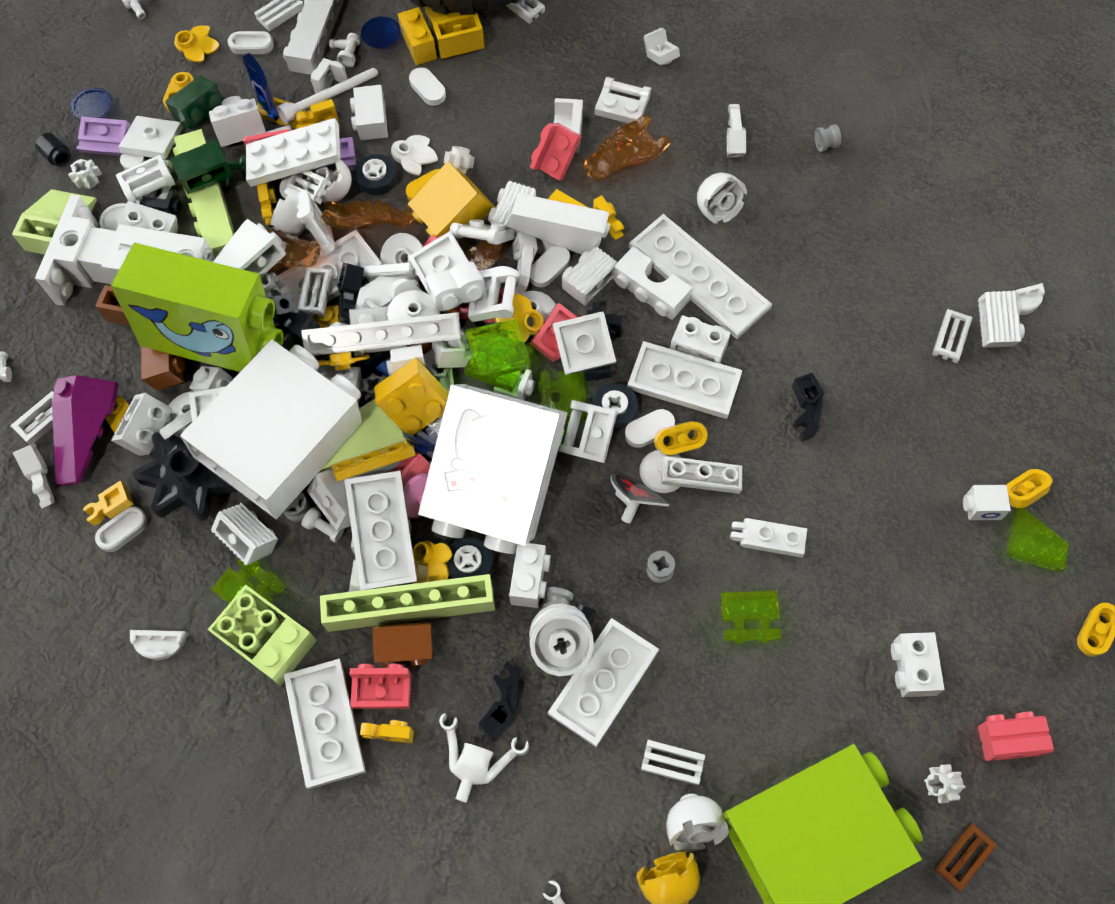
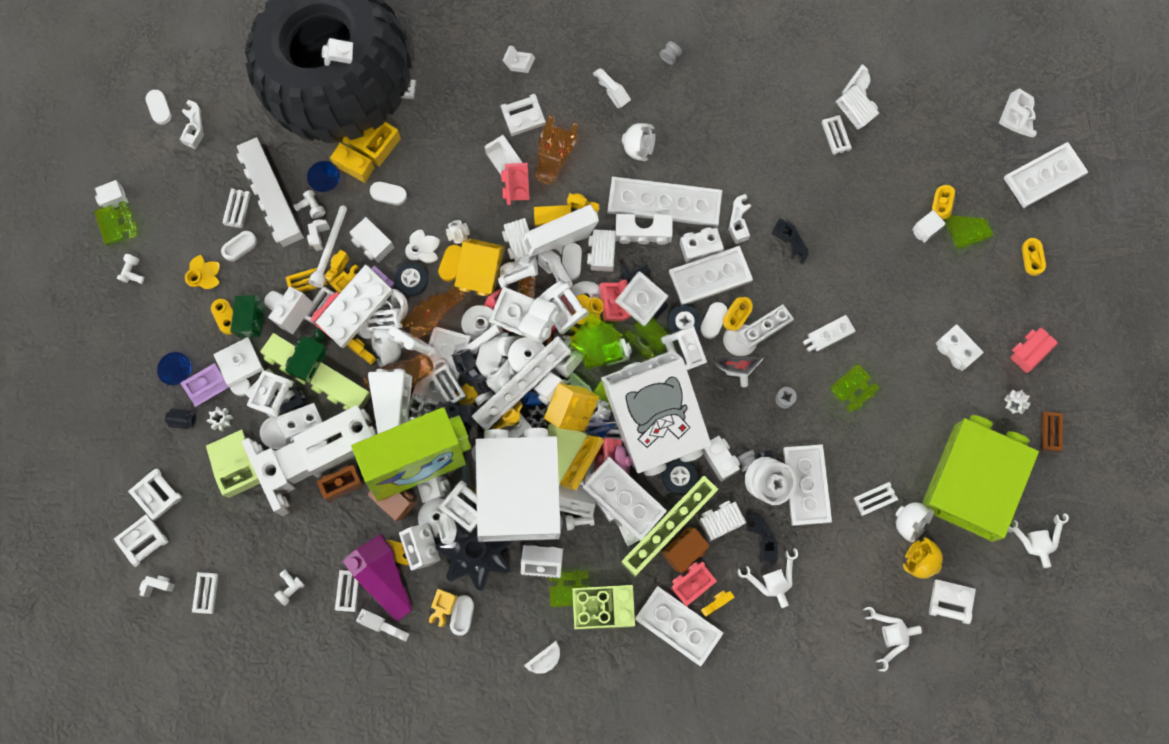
camera: 40 degrees left, 10 degrees up
(260, 86) = (293, 276): clear blue slope -> none
(431, 561) = (663, 493): yellow plate -> none
(472, 644) = (722, 521): none -> white brick
(772, 336) = (736, 218): none -> white piece

